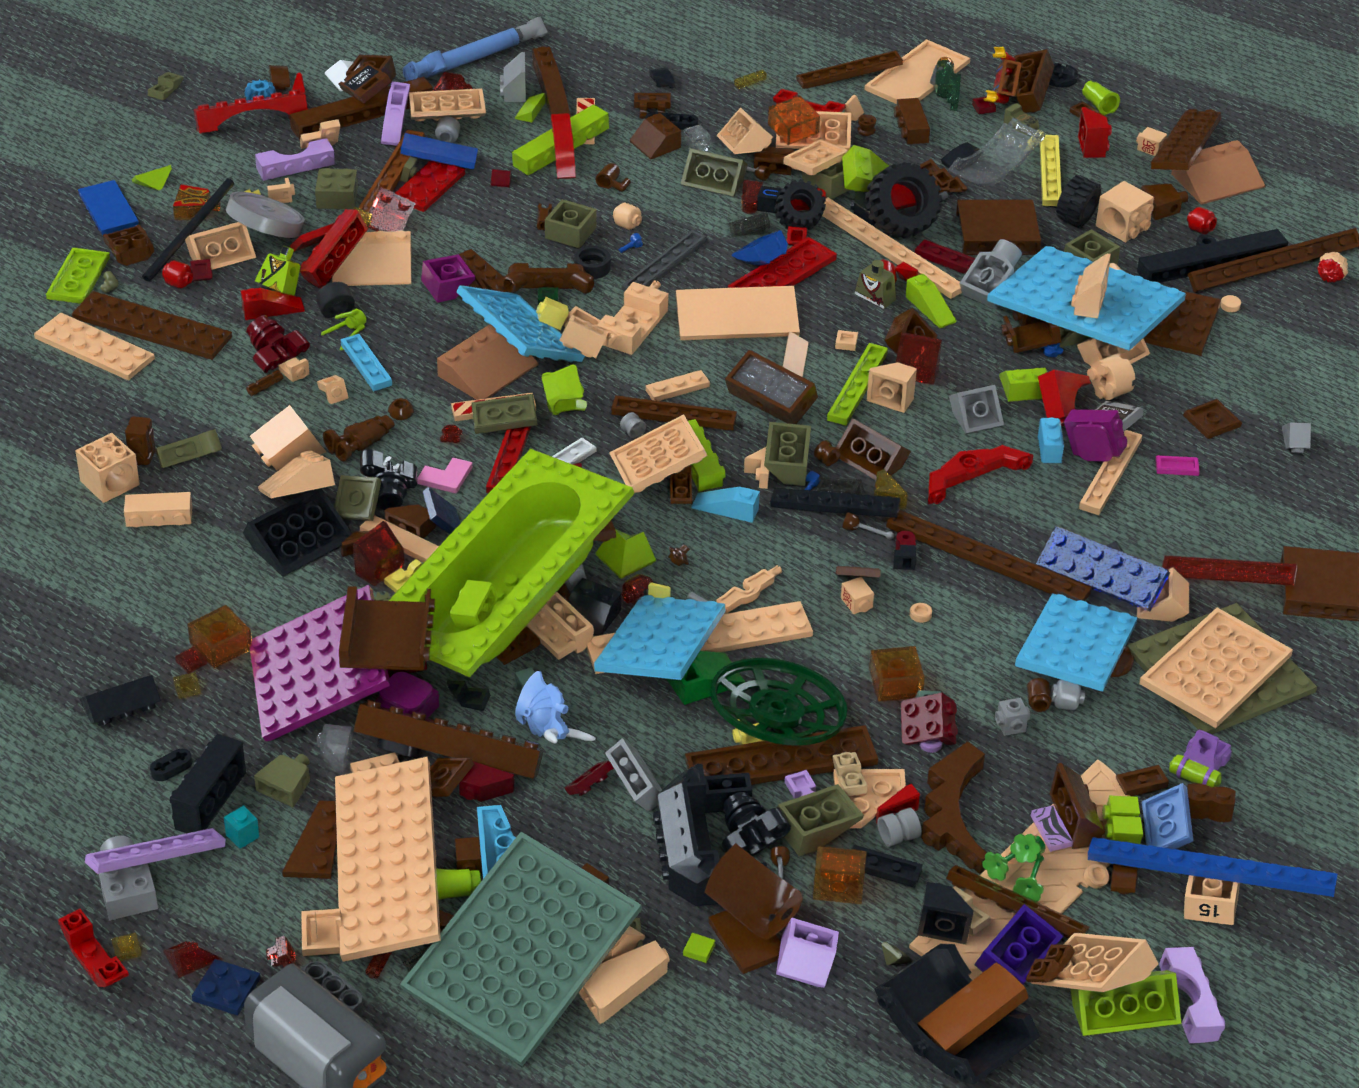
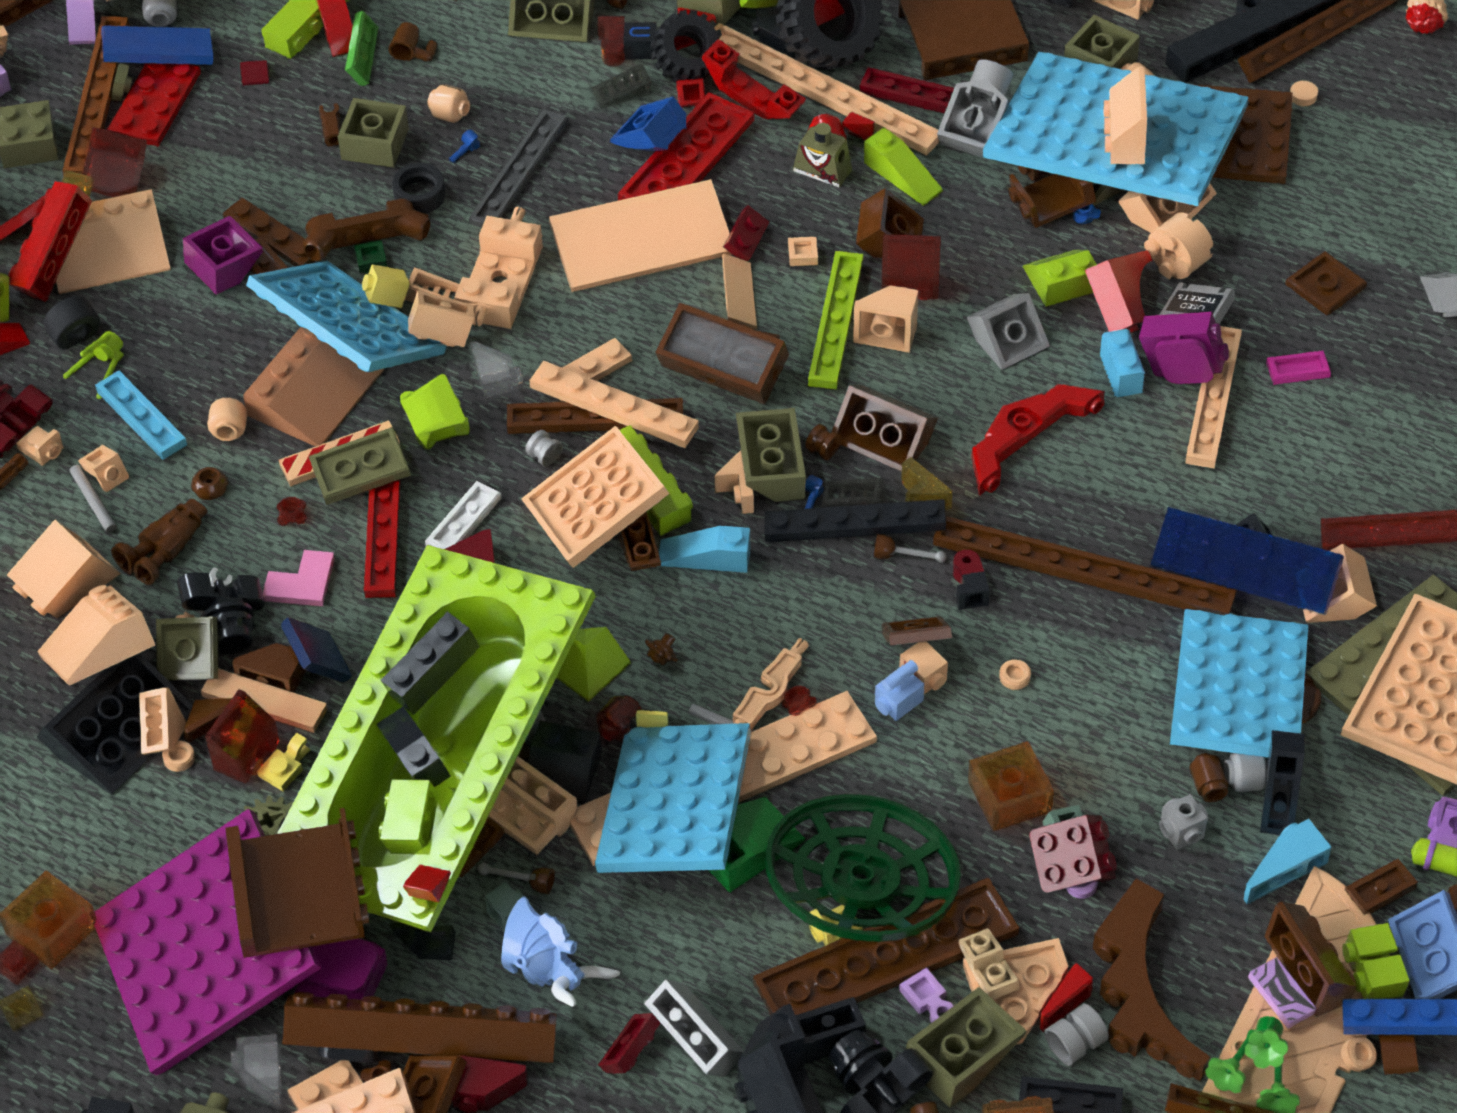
camera: 10 degrees left, 10 degrees up
(320, 405) = (92, 498): none -> light grey bar
(327, 536) = (159, 721): none -> light nougat slope
(334, 562) = (180, 757): none -> light nougat tile
(423, 373) = (227, 419): none -> light nougat head
(473, 643) = (427, 883): none -> red slope
(488, 566) = (413, 748): none -> black slope
(512, 517) = (430, 663): none -> black brick
(556, 674) = (540, 879): none -> hinge
(577, 175) = (361, 48): none -> bright green tile
(613, 376) = (495, 372): none -> clear slope
(689, 406) = (614, 404): none -> light nougat plate
(764, 600) = (798, 699): none -> clear red plate
(810, 323) = (746, 234): none -> dark red plate
(821, 220) = (722, 63): none -> red slope
(836, 605) = (899, 691): none -> light blue brick
(1080, 751) = (1290, 857): none -> medium azure slope
(1087, 702) = (1282, 781): none -> black slope

